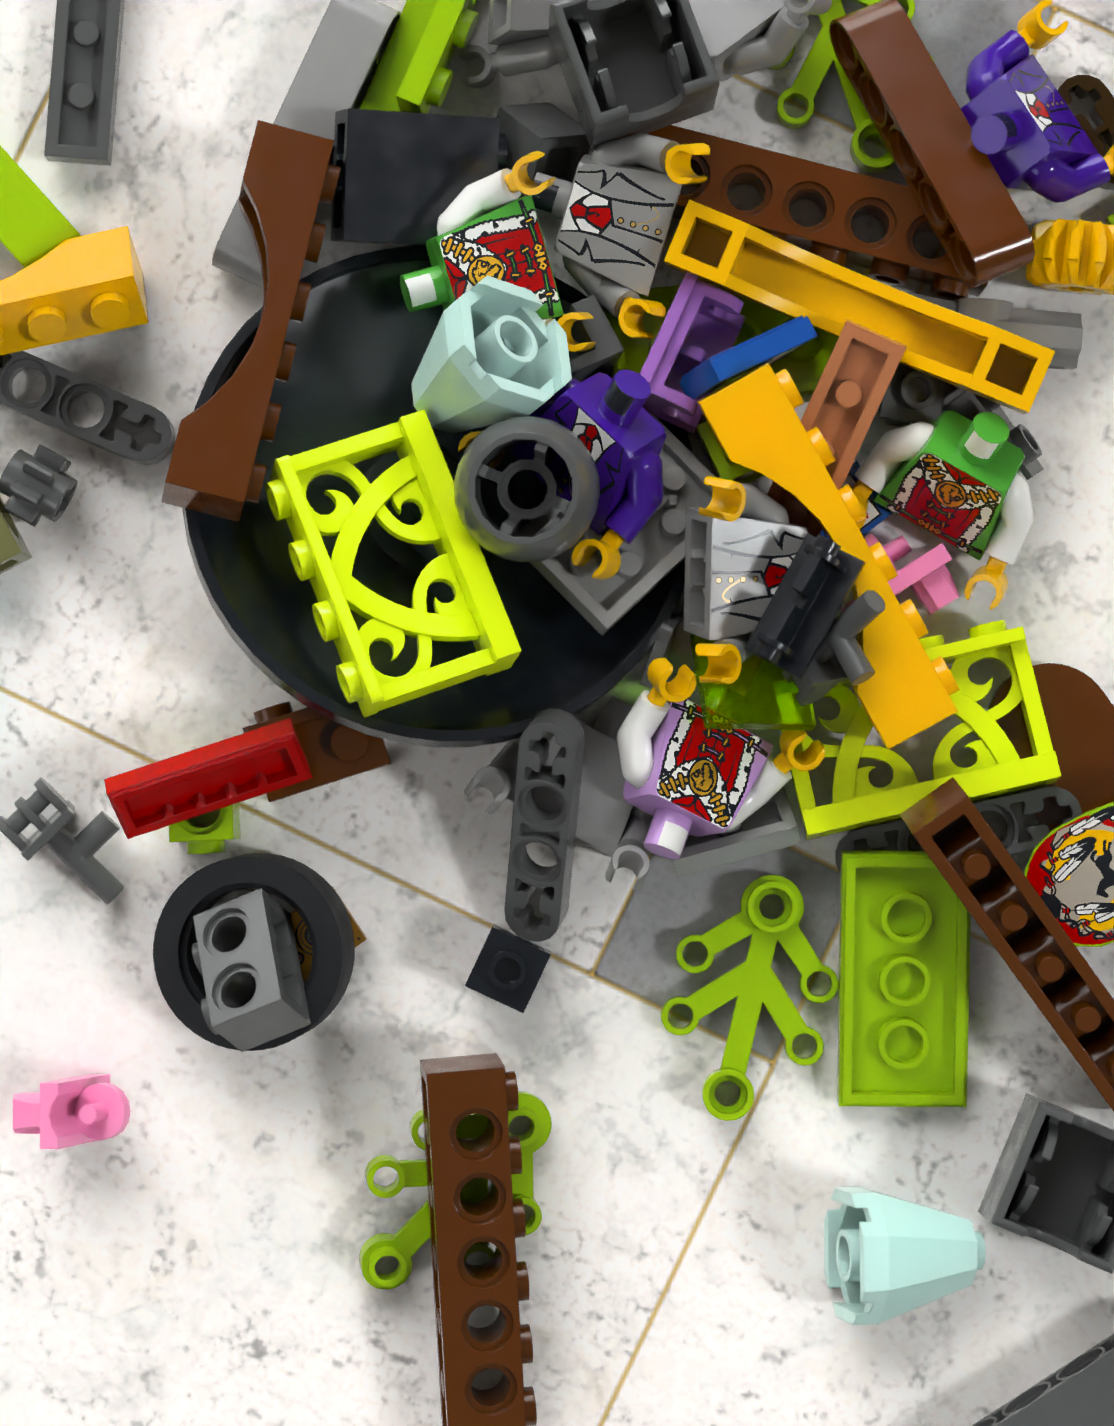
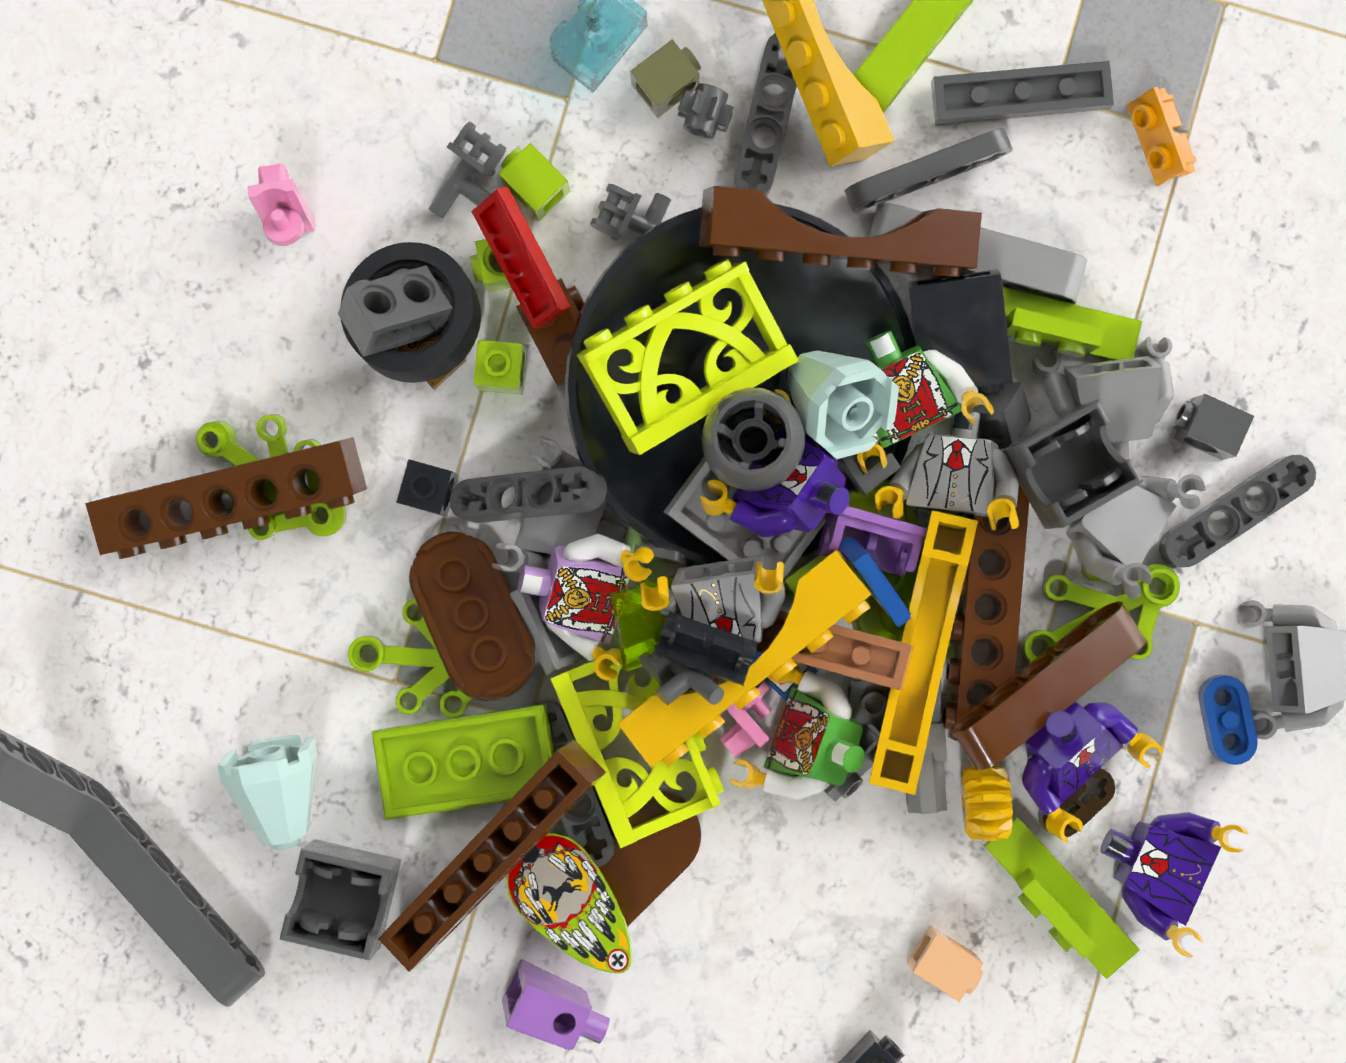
camera: 75 degrees right, 0 degrees up
(93, 746) = (533, 180): none -> lime brick
(169, 621) = (628, 217): none -> dark grey arm
(175, 185) = (928, 170): none -> dark grey beam
(353, 837) = (500, 367): none -> lime brick
(700, 935) = (471, 616): none -> reddish brown tile

